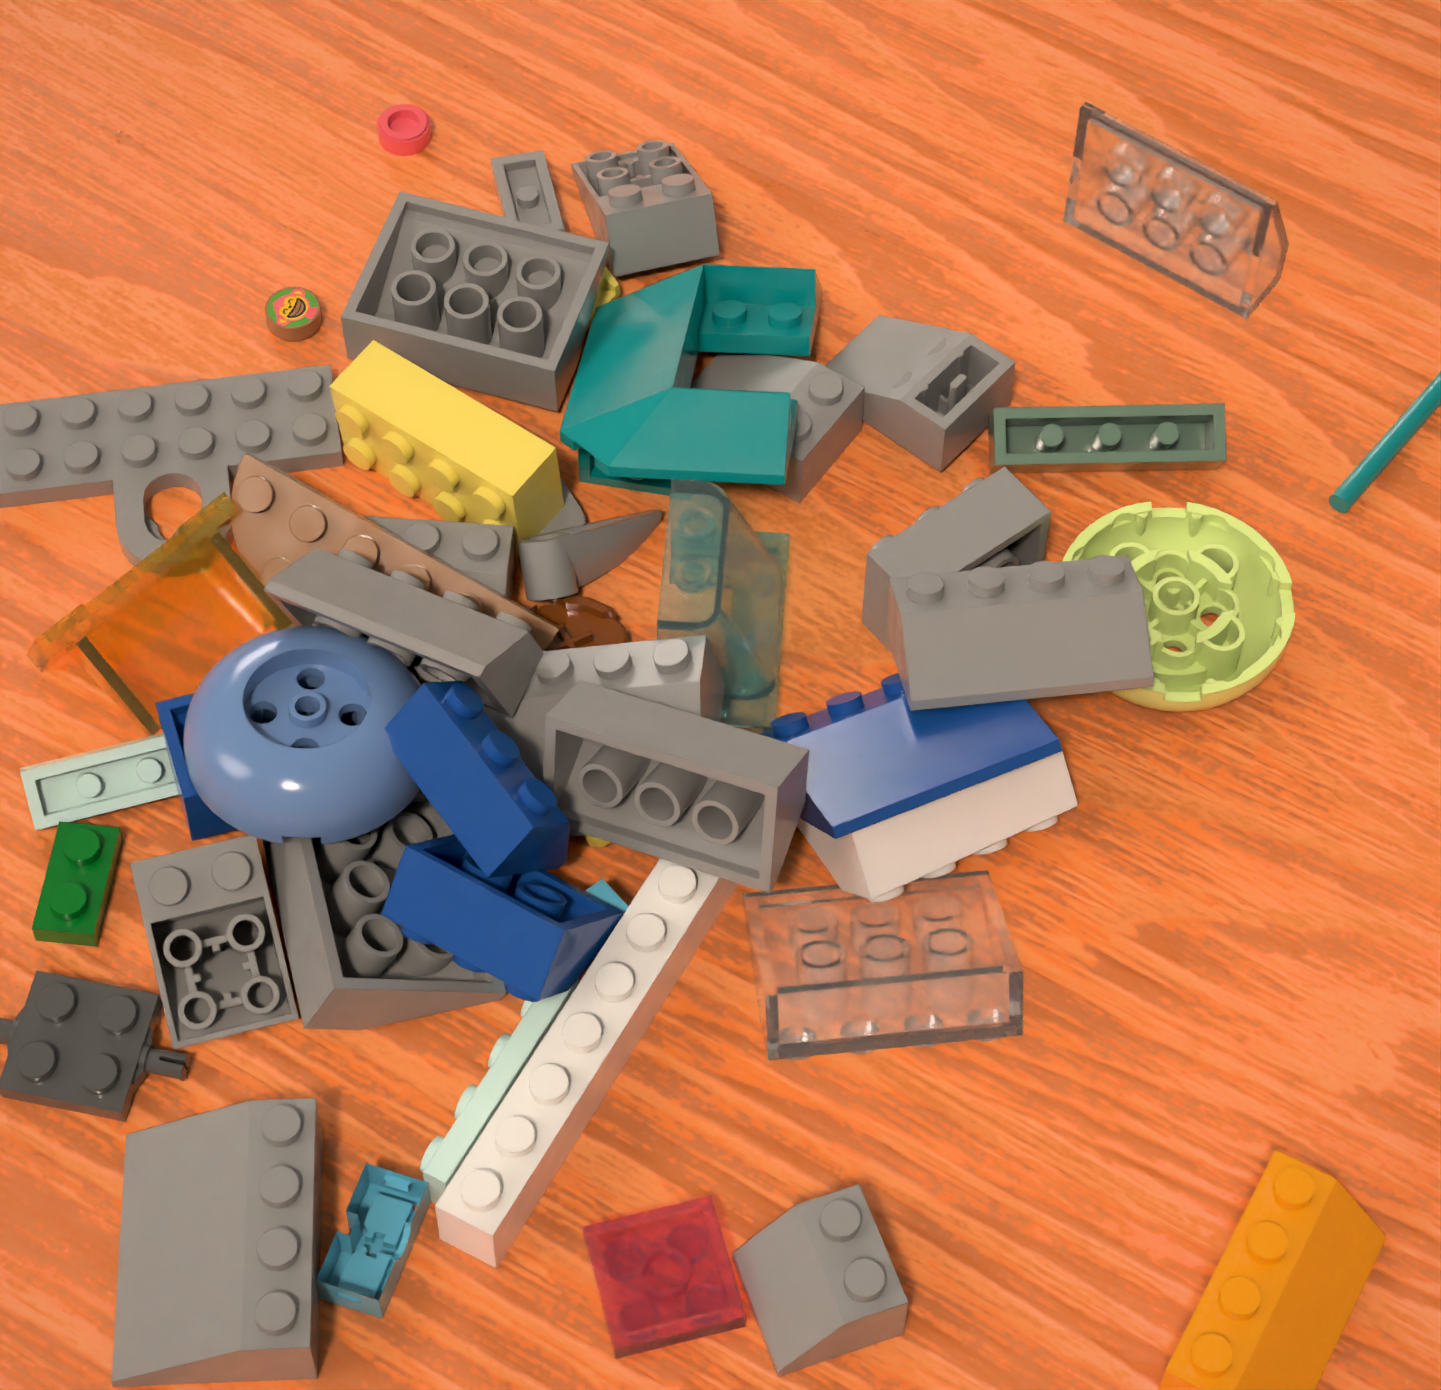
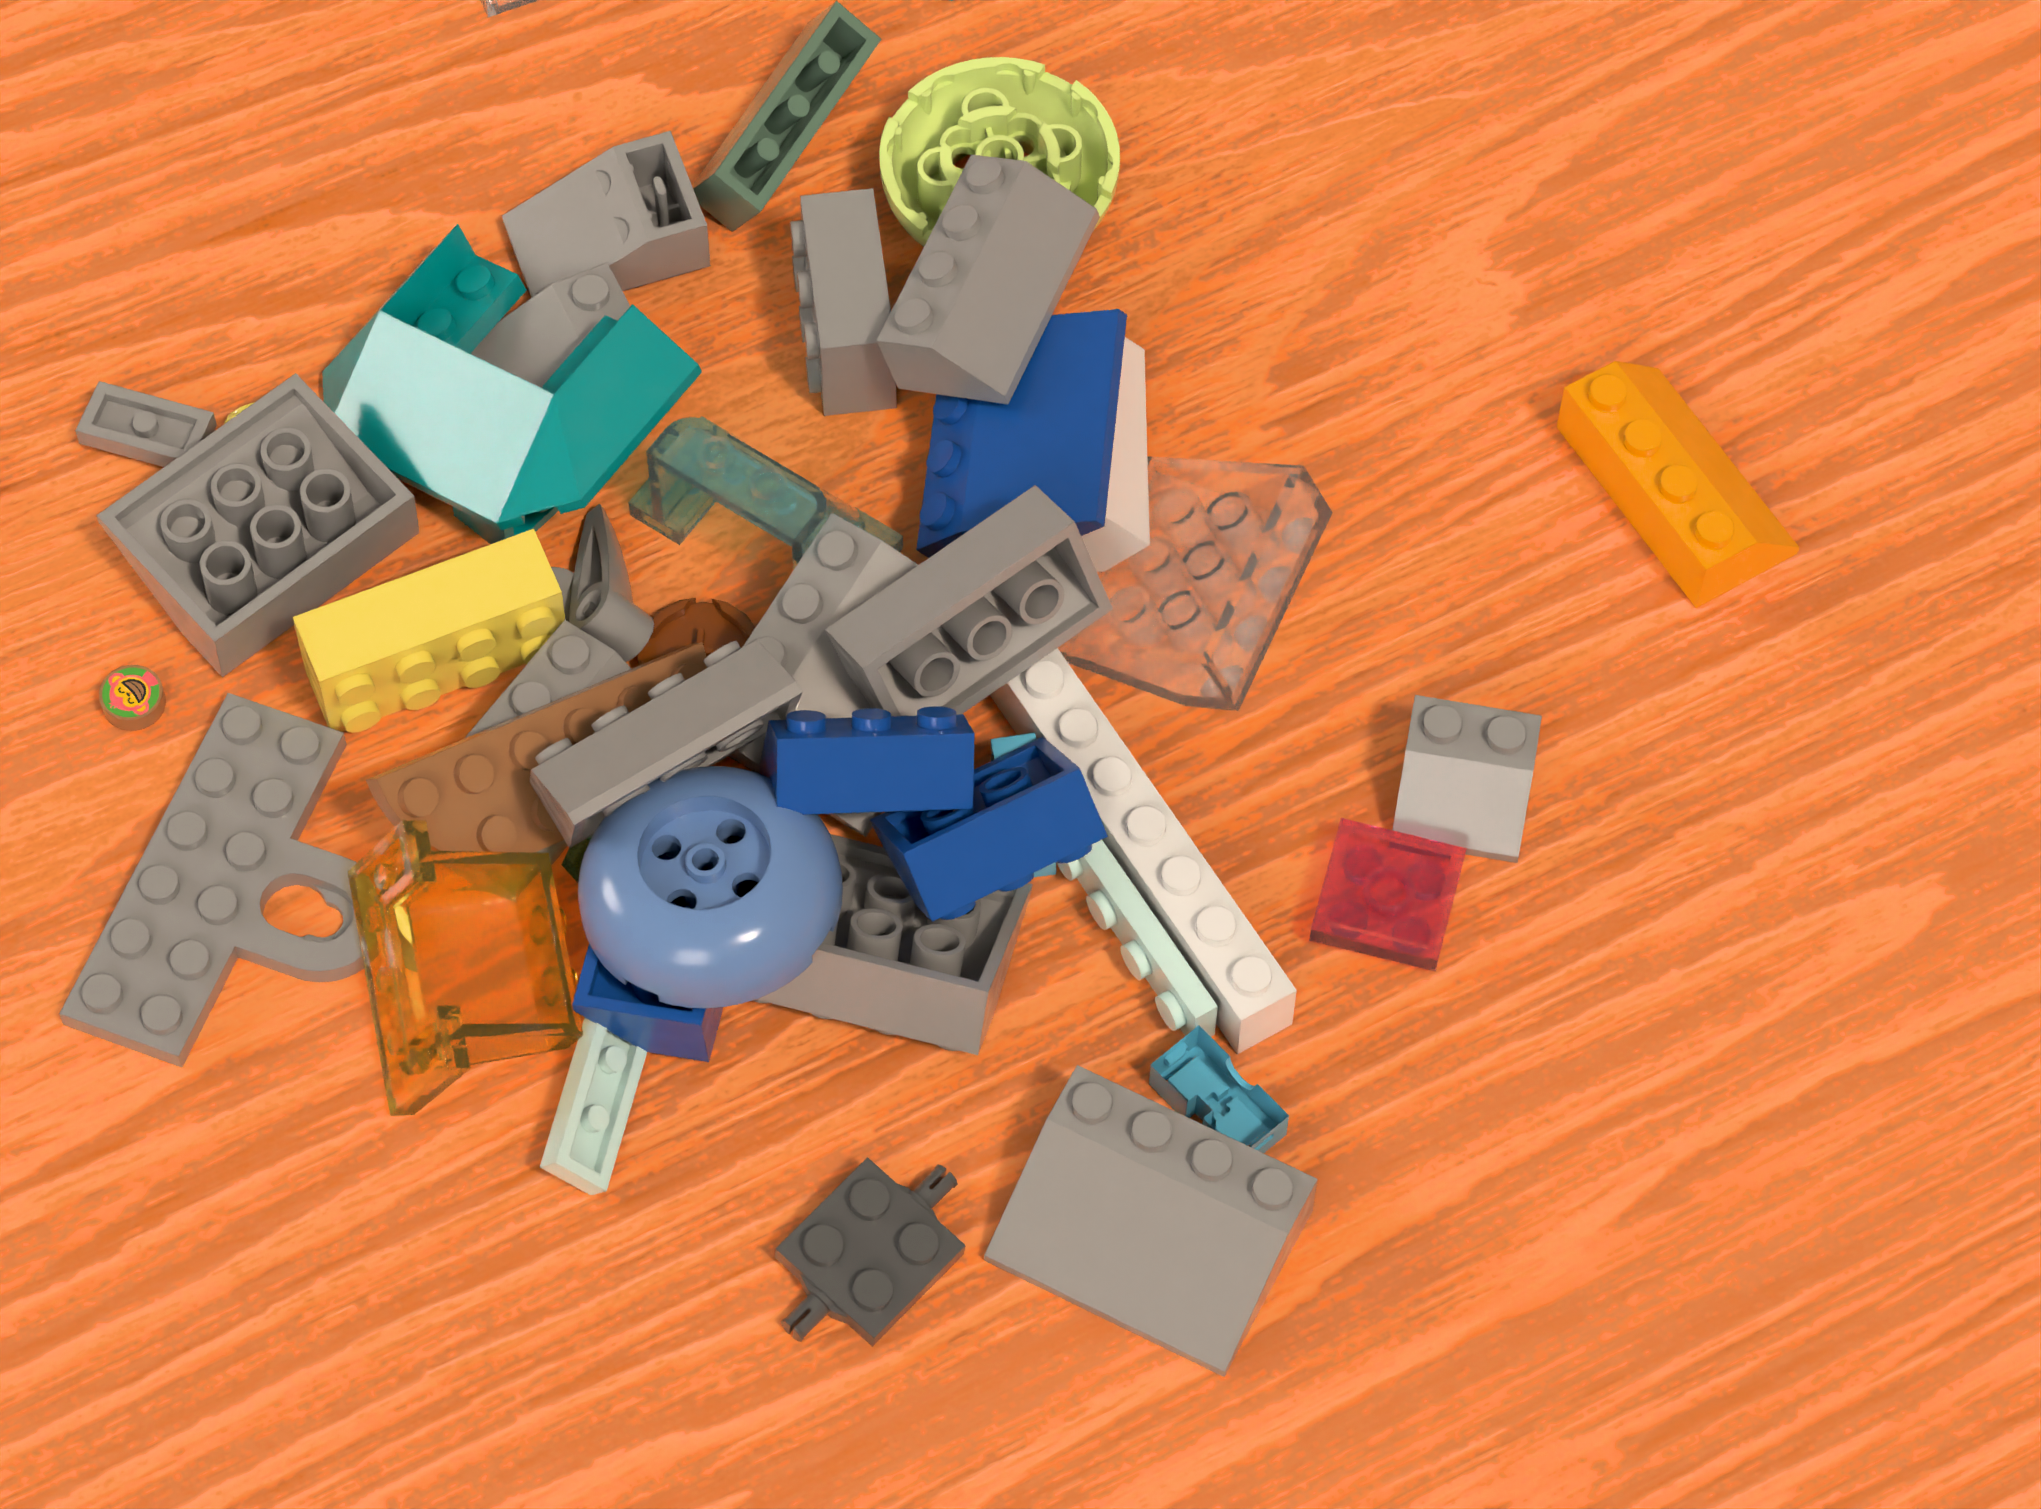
camera: 60 degrees left, 5 degrees up
(77, 884) = (687, 1181): green plate -> none
(214, 941) = (829, 1086): light grey slope -> none
(647, 207) = (229, 330): light grey slope -> none

